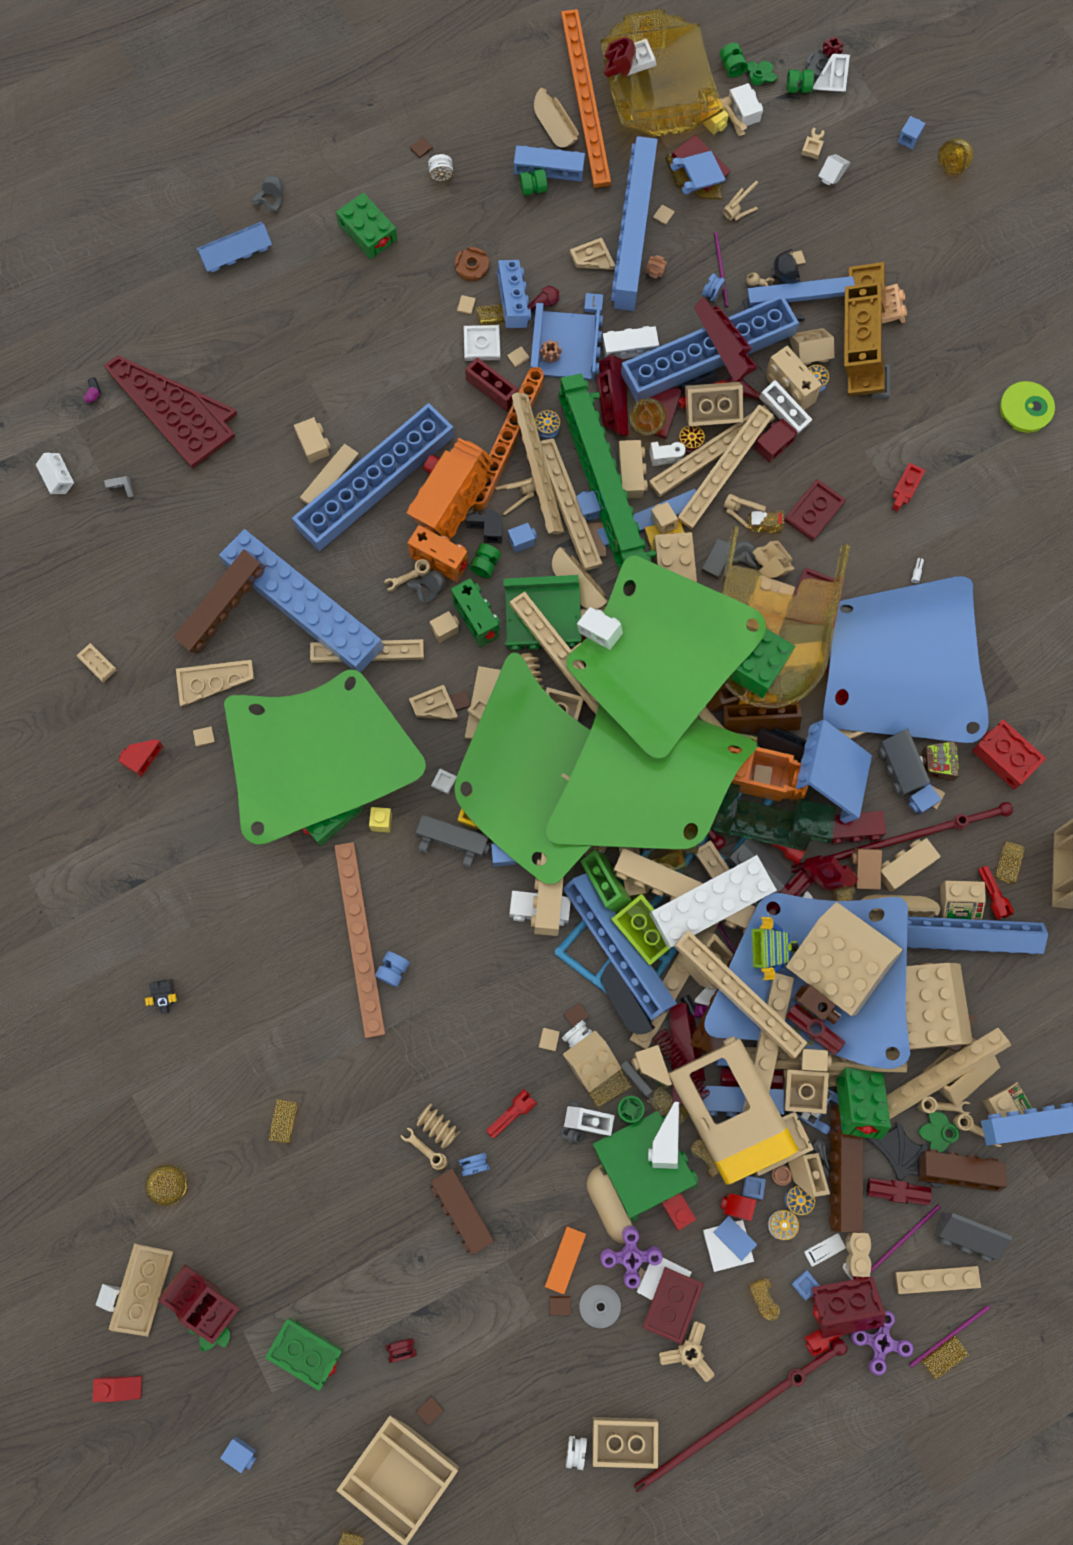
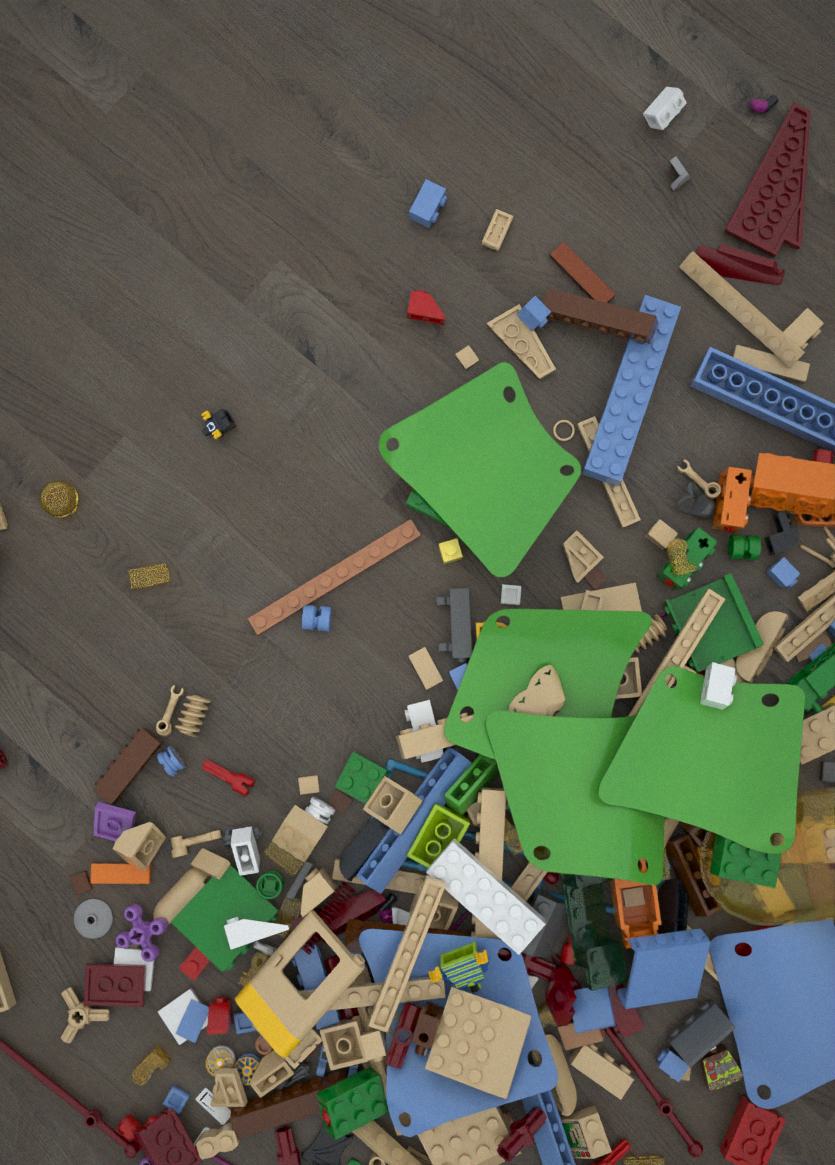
camera: 75 degrees right, 10 degrees up
(40, 715) = (428, 203): none -> medium blue brick
(172, 604) = (581, 274): none -> copper tile
(191, 658) = (534, 314): none -> medium blue brick
(226, 469) = (741, 264): none -> dark red wedge
(269, 480) = (741, 309): none -> tan plate
(314, 684) = (563, 421): none -> tan piece
(471, 614) = (678, 557): none -> clear yellow leg
(481, 885) = (425, 668): none -> tan tile
(513, 1245) = (112, 821): none -> medium lavender plate
(544, 1226) = (139, 845): none -> tan slope
(551, 782) = (542, 699): none -> tan piece
(560, 1188) = (180, 845): none -> tan brick
(562, 982) = (361, 777): none -> green brick
(588, 1161) = (210, 863): none -> tan tile
(597, 958) = (392, 805): none -> tan slope
(690, 1138) = (267, 949): none -> white pin
(812, 1224) = (228, 1089): none -> tan wing
(851, 848) = (592, 1010): none -> medium blue tile
(940, 952) = (521, 1134): none -> dark red piece

